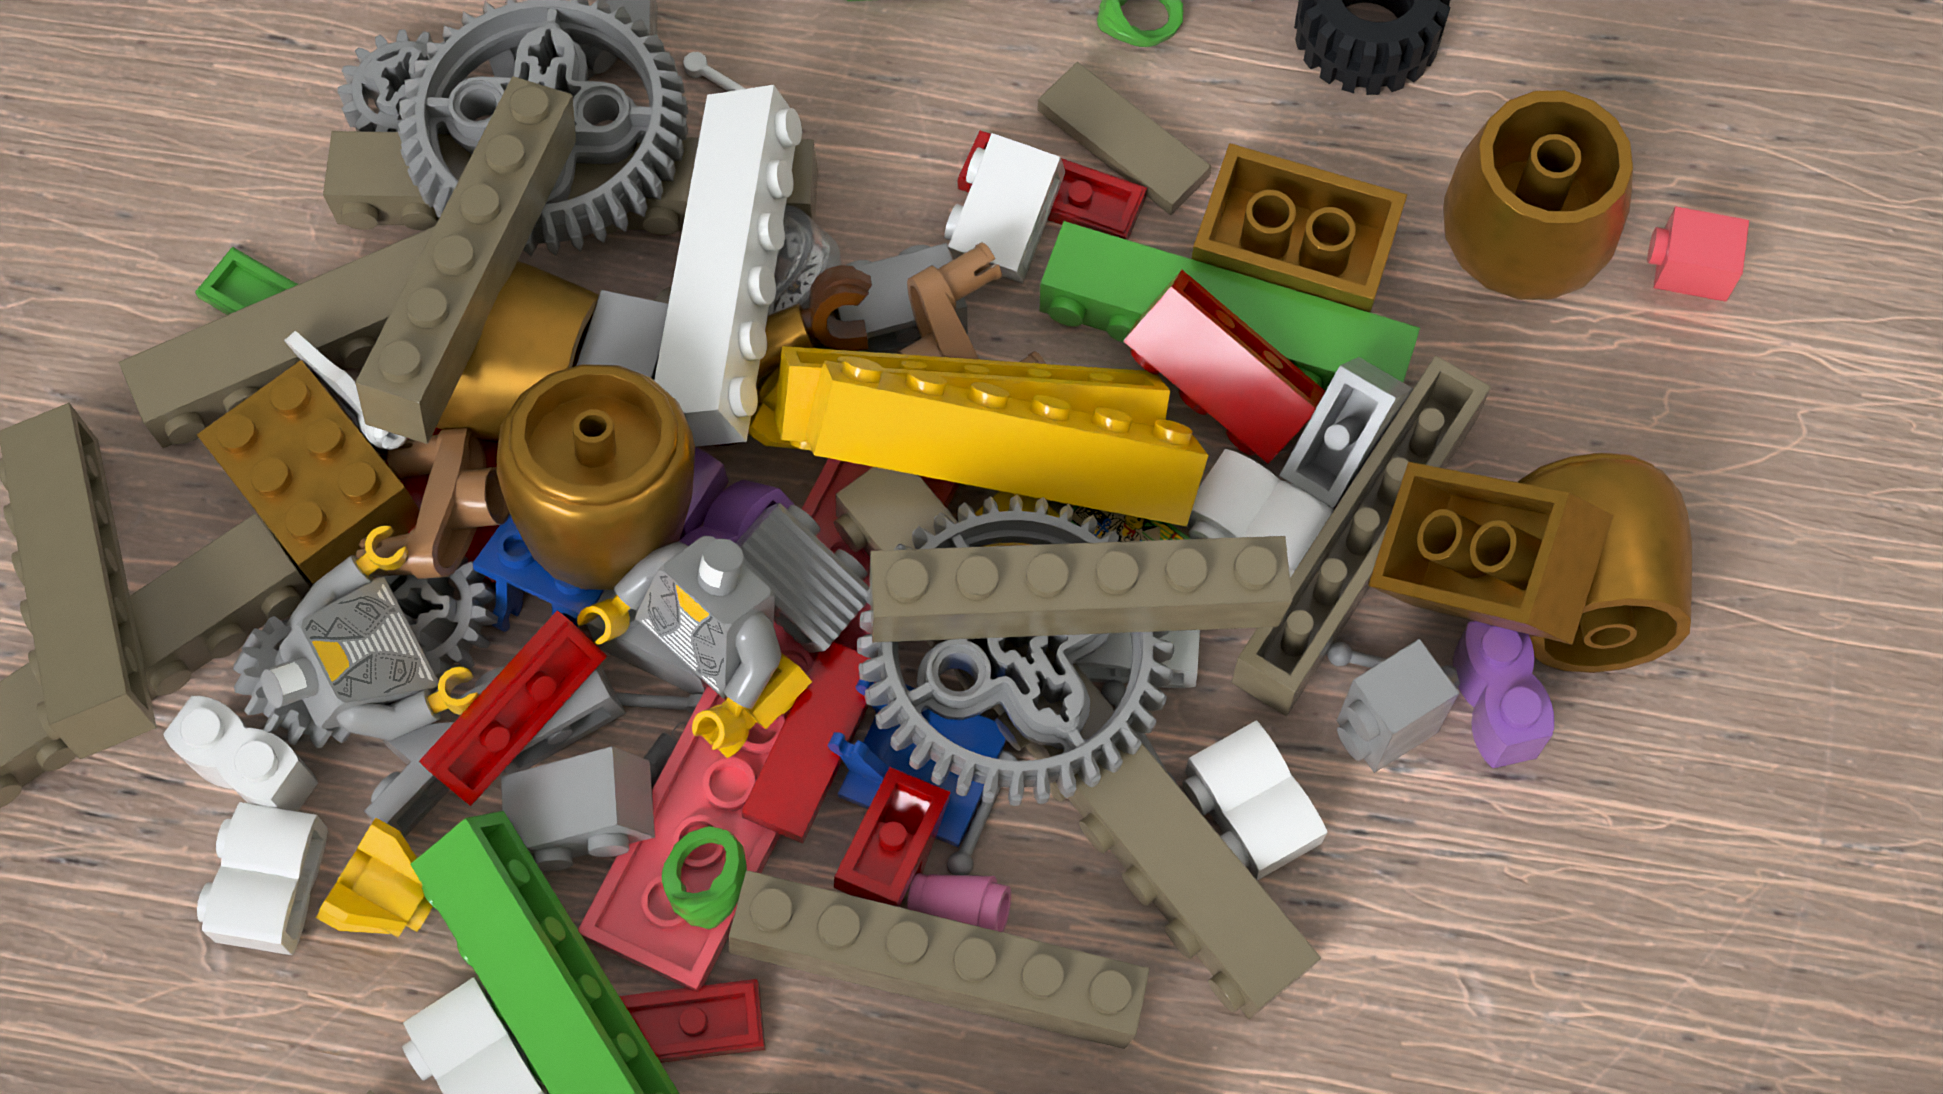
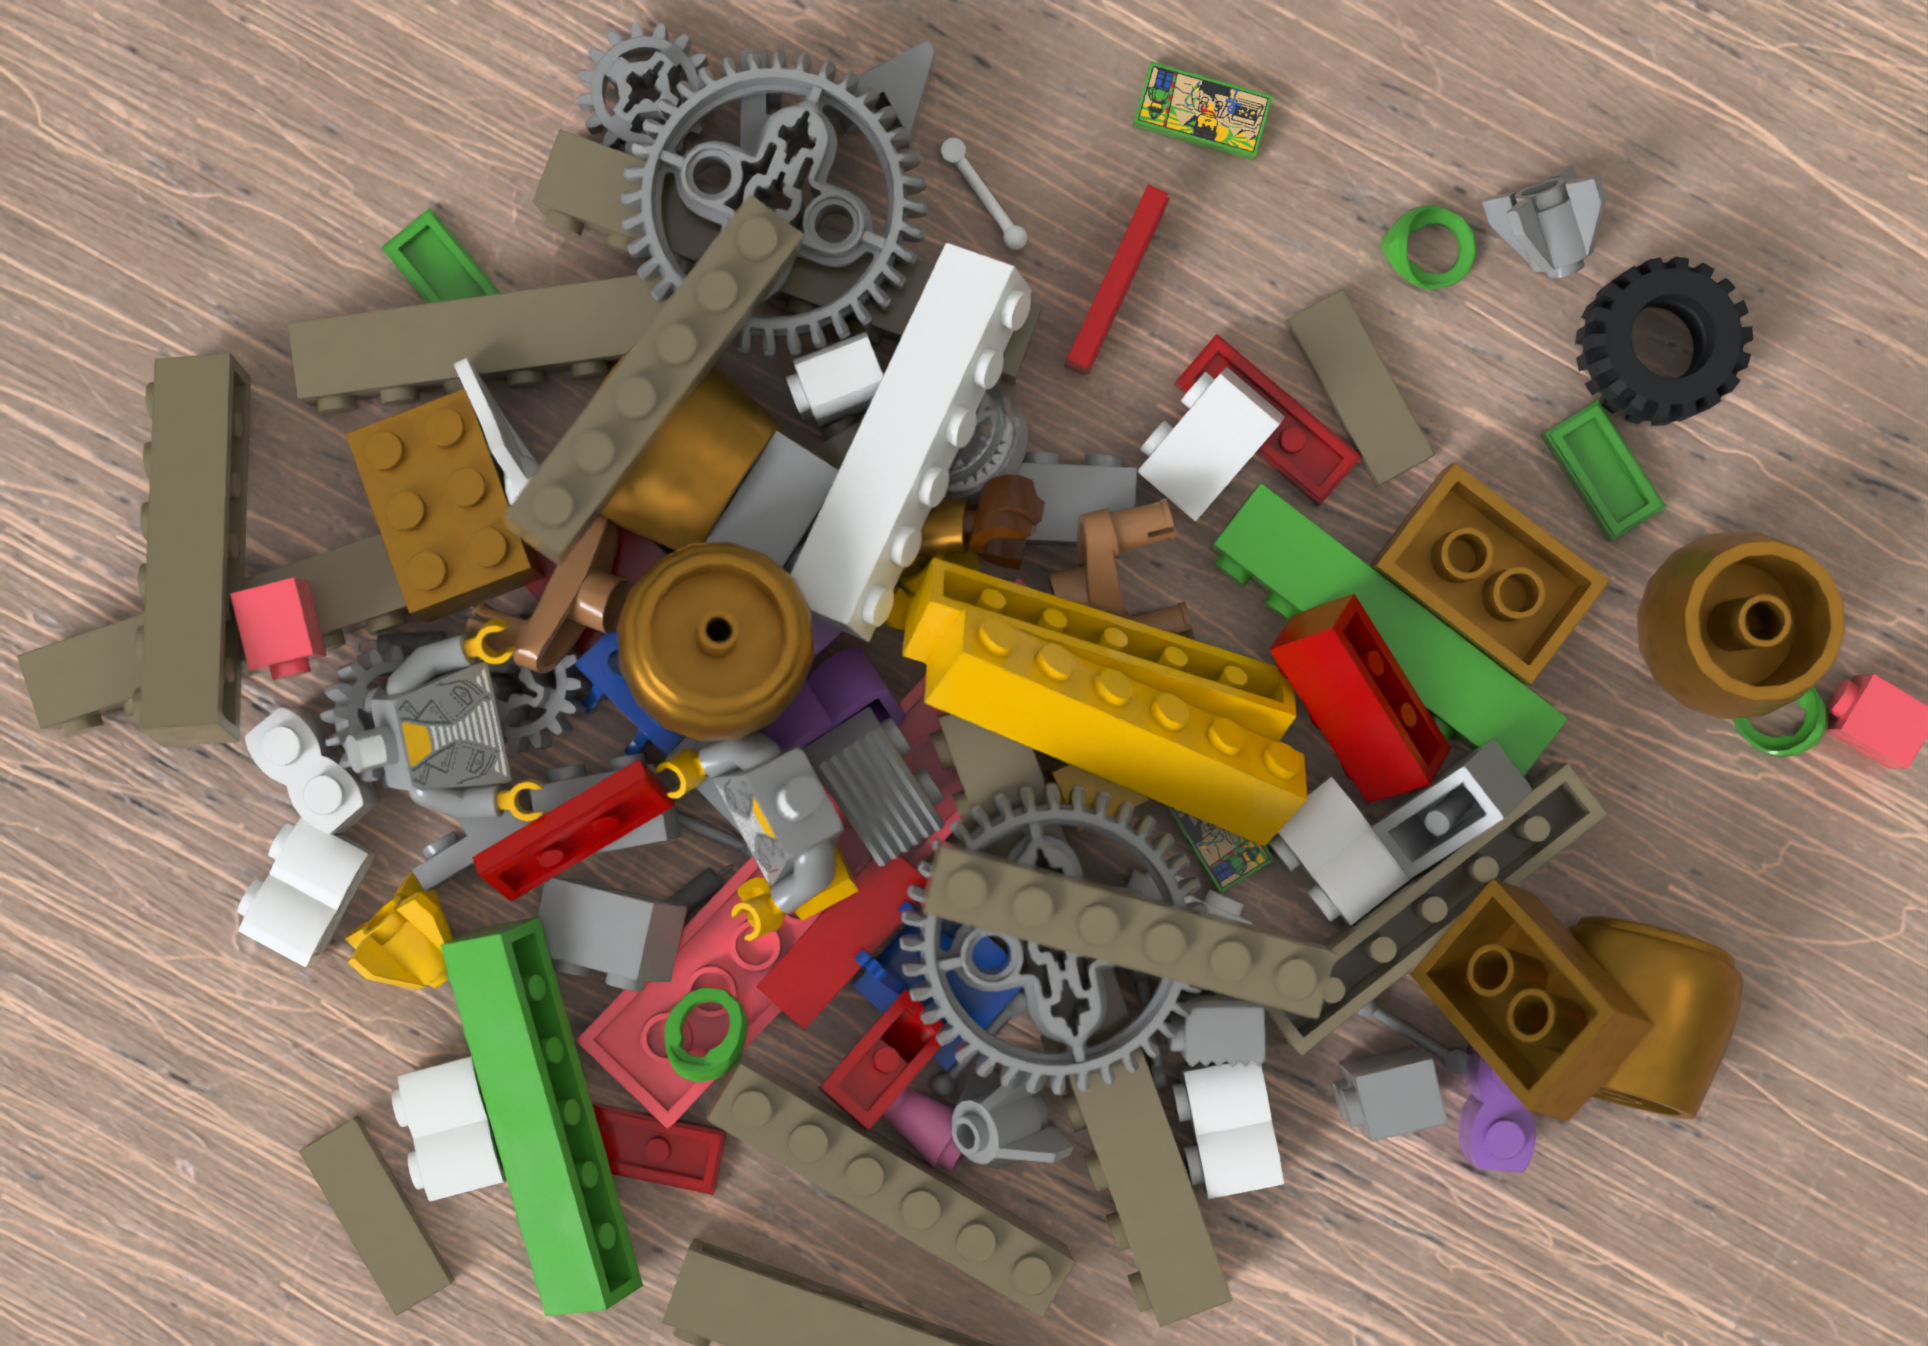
camera: 15 degrees right, 20 degrees up
(171, 615) = (279, 627): none -> coral brick
(643, 247) = (836, 380): none -> white brick
(875, 113) = (1117, 280): none -> red tile
(1032, 859) = (1005, 1124): none -> light grey brick
(1206, 699) = (1219, 1029): none -> light grey brick
(1365, 137) = (1603, 471): none -> bright green tile
(1644, 280) = (1809, 735): none -> bright green piece

